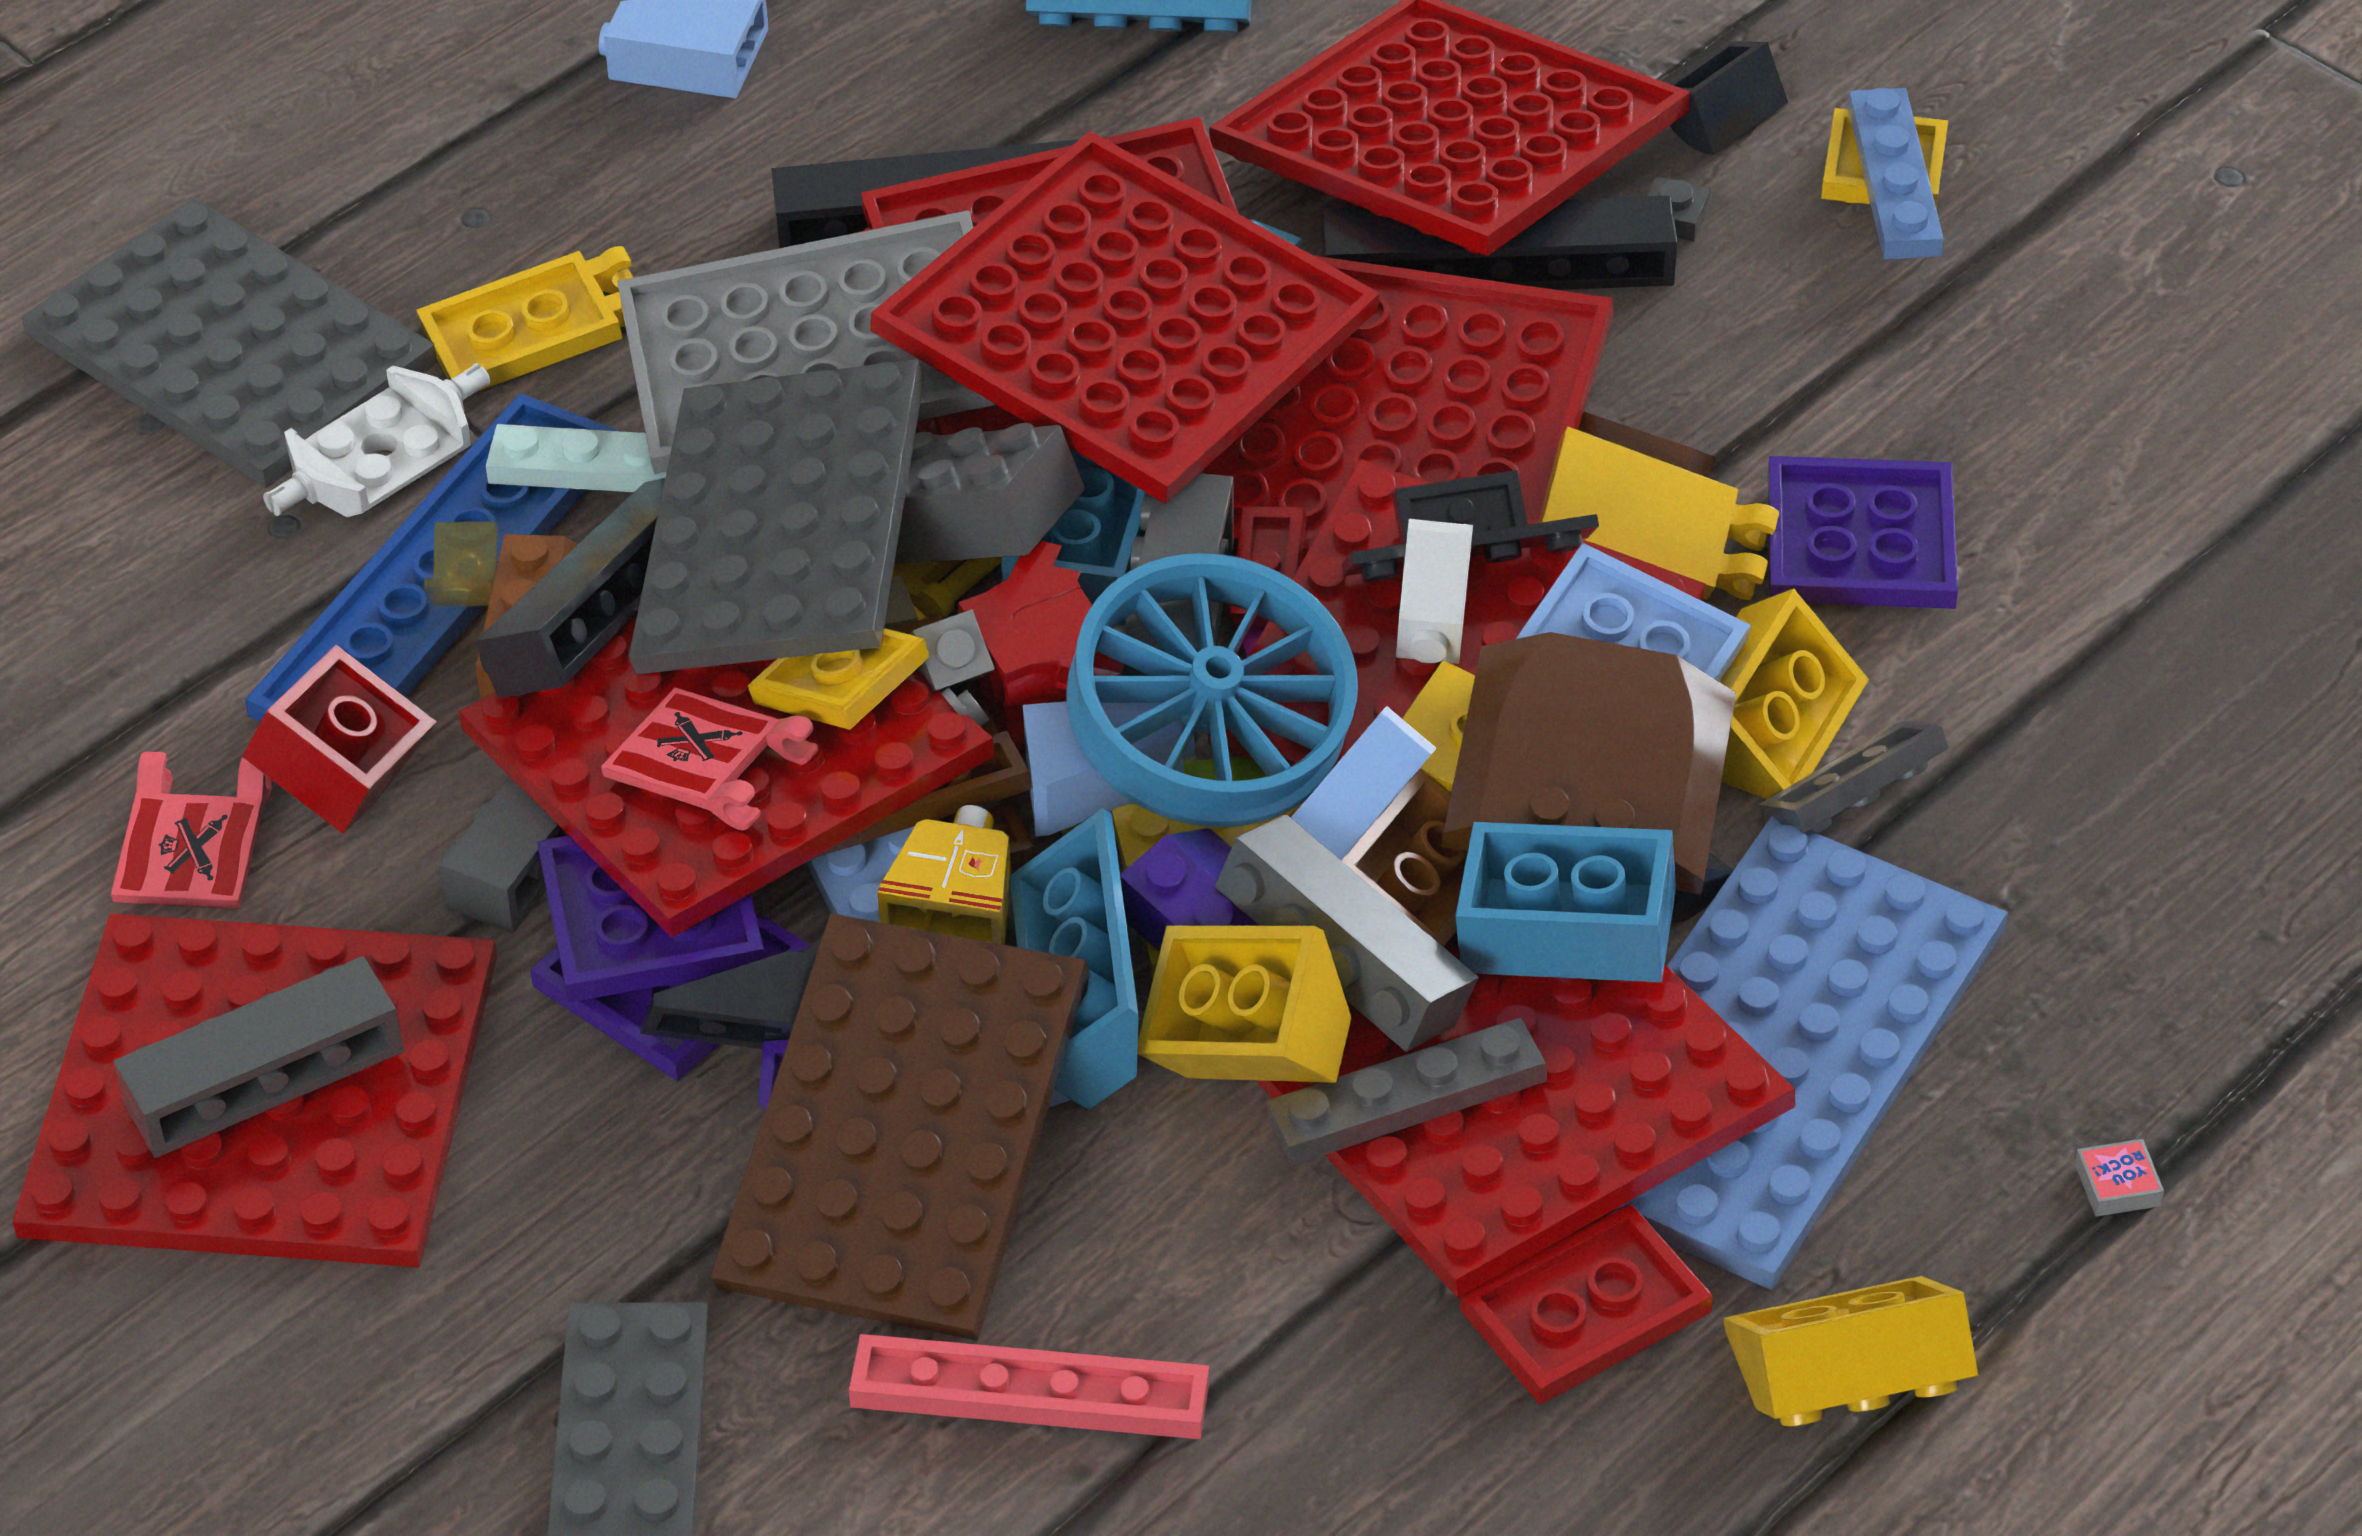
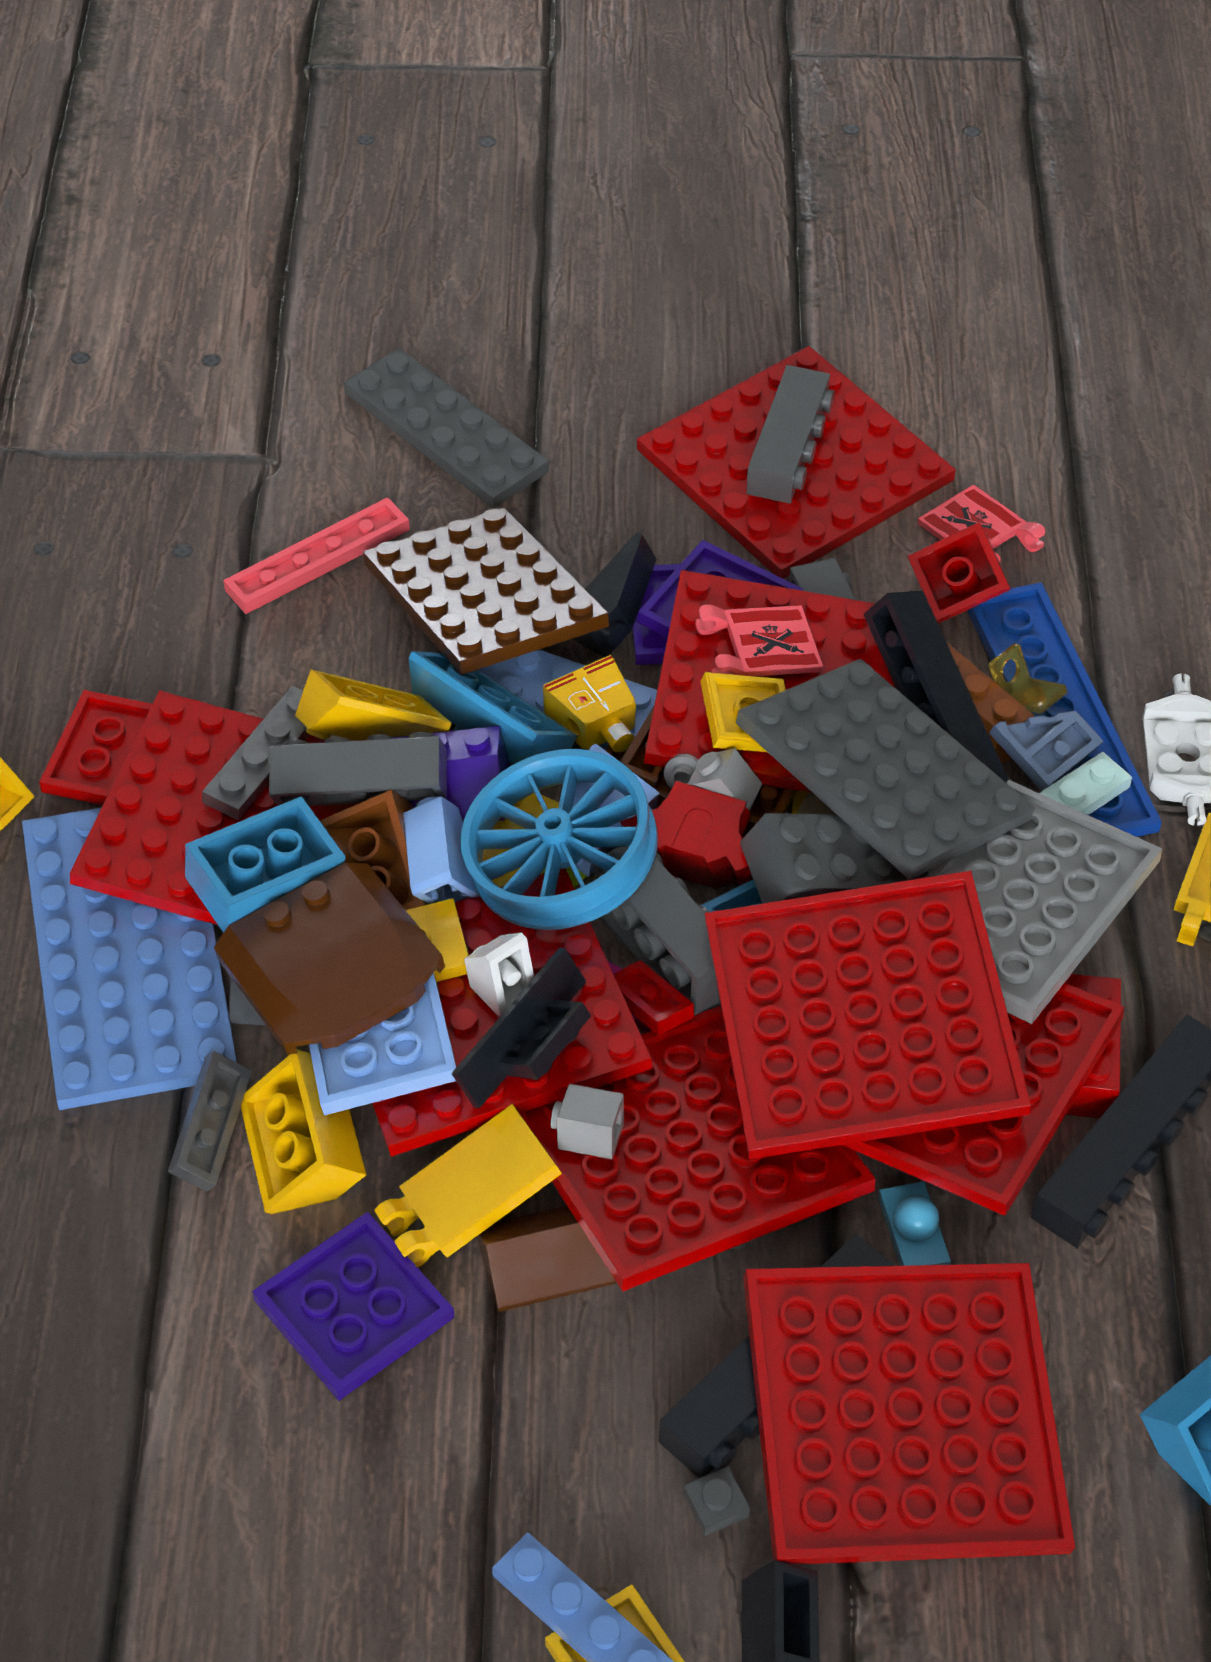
camera: 135 degrees right, 5 degrees up
(534, 498) = (1047, 745): none -> sand blue wing
(1486, 439) = (589, 1121): none -> light grey brick

